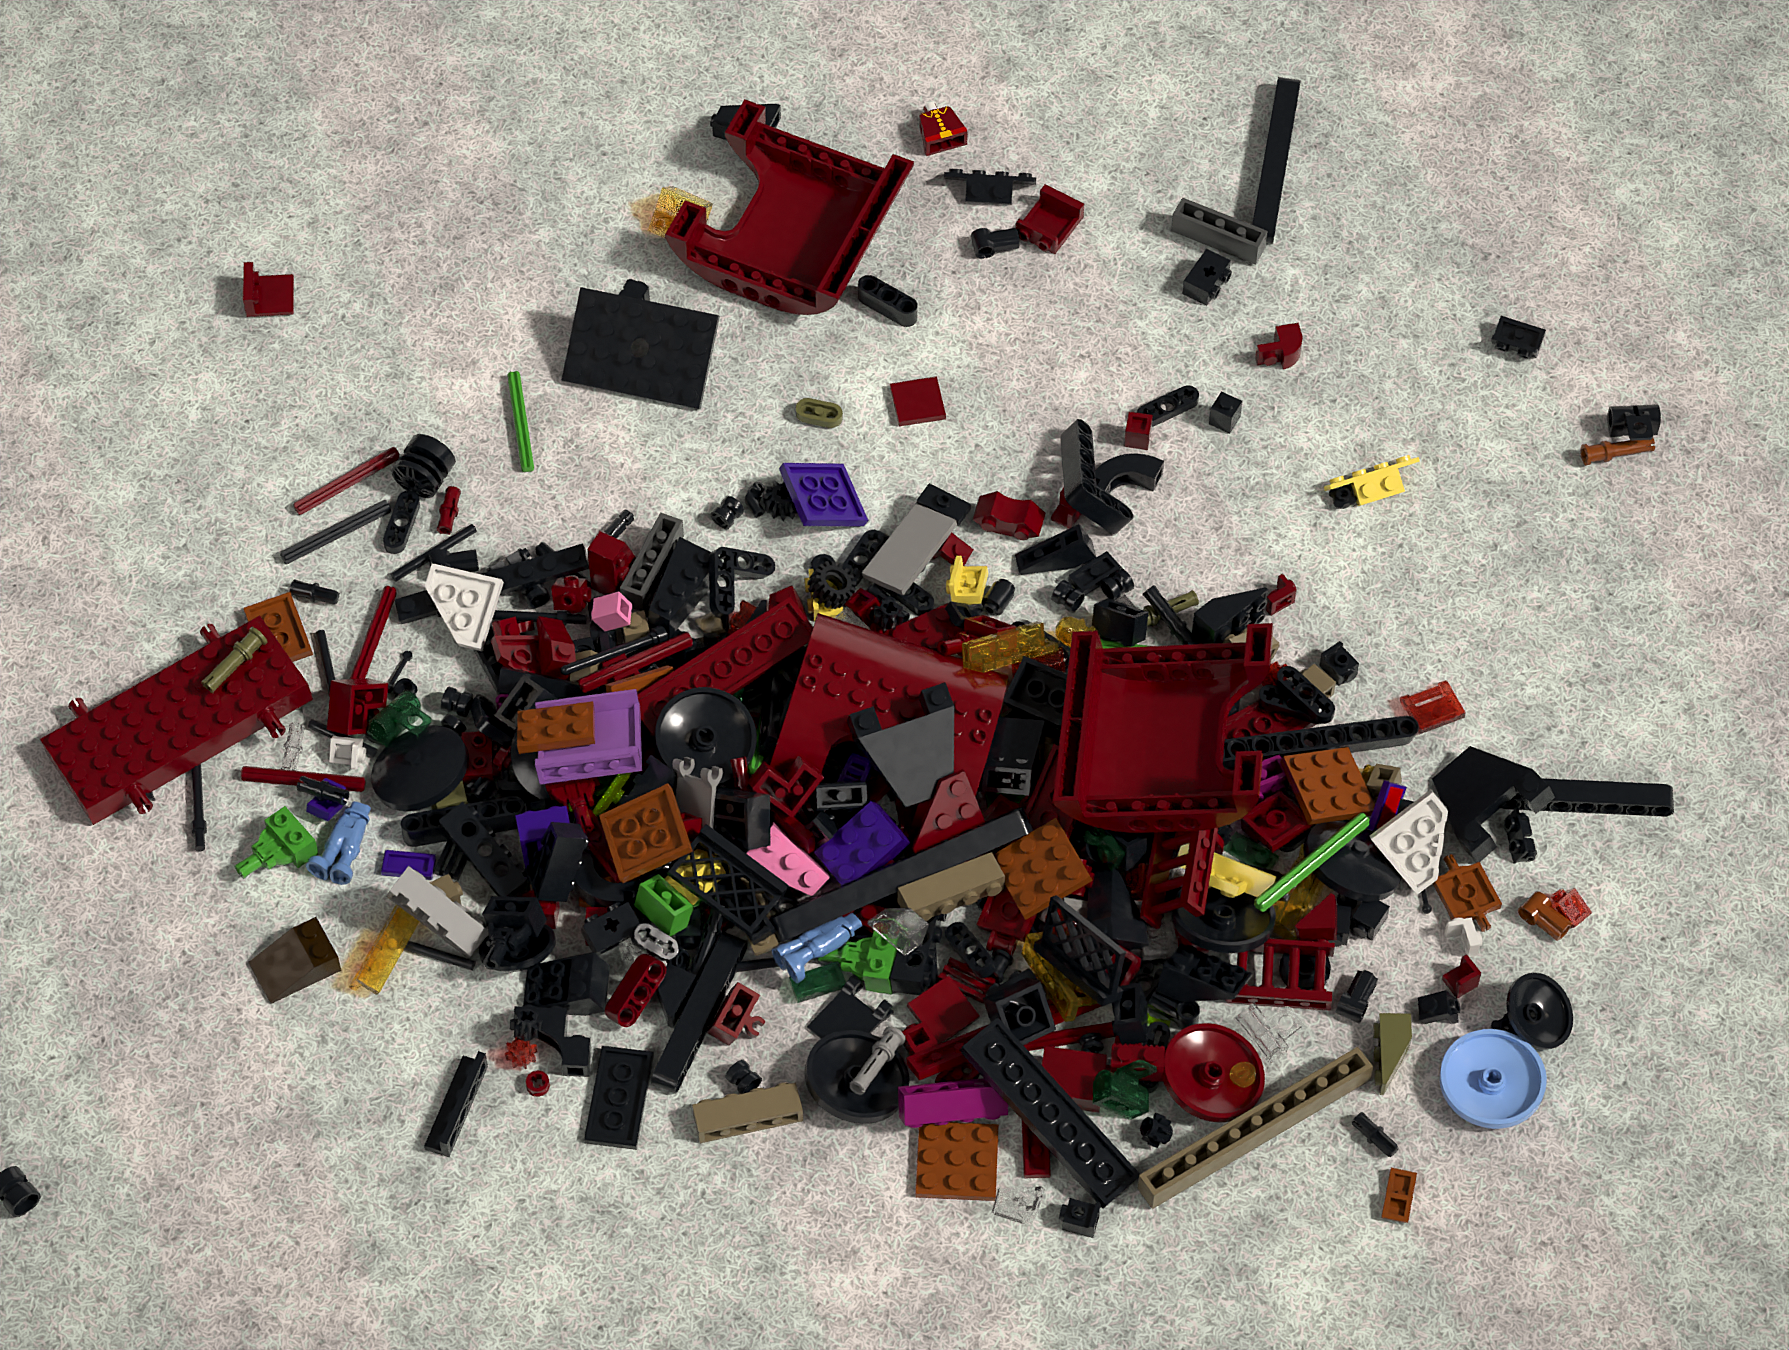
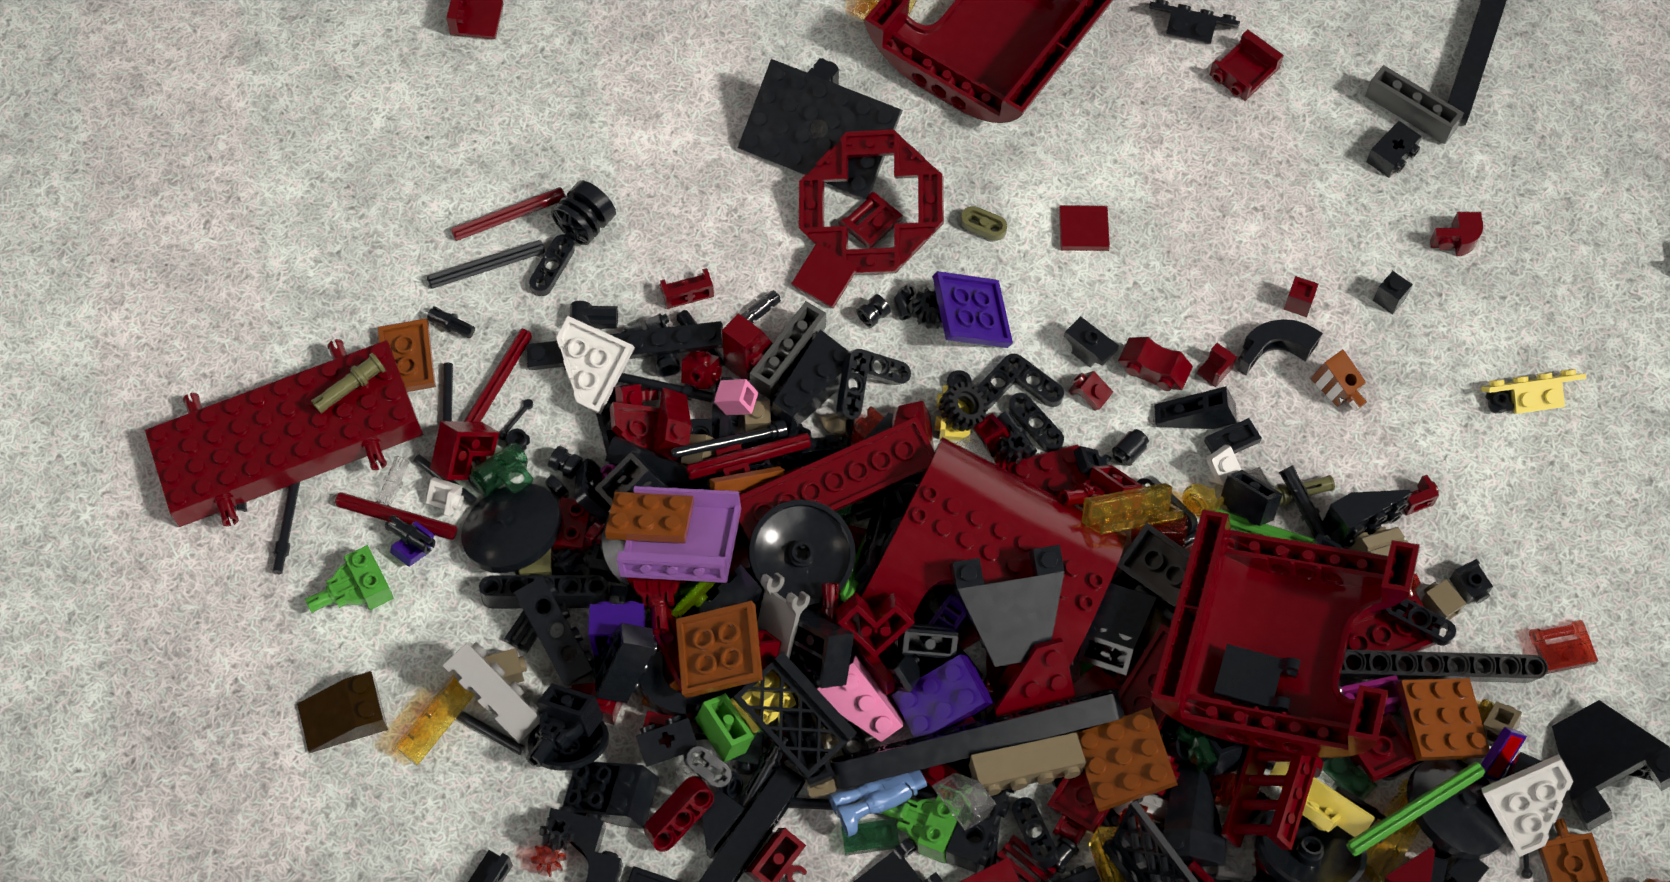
camera: 10 degrees right, 5 degrees up
(344, 839) = (423, 590): medium blue piece -> none
(397, 862) = (480, 627): dark purple tile -> none
(424, 558) = (565, 306): black bar -> none
(448, 510) = (600, 261): dark red pin -> none
(520, 421) = (689, 183): bright green axle -> none
(541, 523) = (687, 290): none -> dark red hinge
(673, 487) = (825, 275): none -> dark red tile
(712, 432) = (875, 225): none -> dark red plate
(747, 436) = (907, 164): none -> dark red plate
(887, 300) = (1067, 112): black beam -> none
(909, 549) = (1048, 381): light grey tile -> none
(966, 582) = (1100, 427): light yellow bracket -> none
(988, 242) = (1182, 78): black piece -> none
(1068, 596) = (1197, 457): black wheel -> none
(1080, 481) = (1235, 337): black beam -> none
(1087, 595) = (1222, 464): none -> white bracket
(1117, 584) = (1253, 455): black wheel -> none
(1145, 770) = (1254, 677): none -> black flag
(1172, 398) = (1341, 268): black beam -> none
(1188, 502) = (1340, 381): none -> dark orange torso
(1307, 705) = (1451, 624): black beam -> none
(1517, 827) = (1636, 800): black hinge -> none

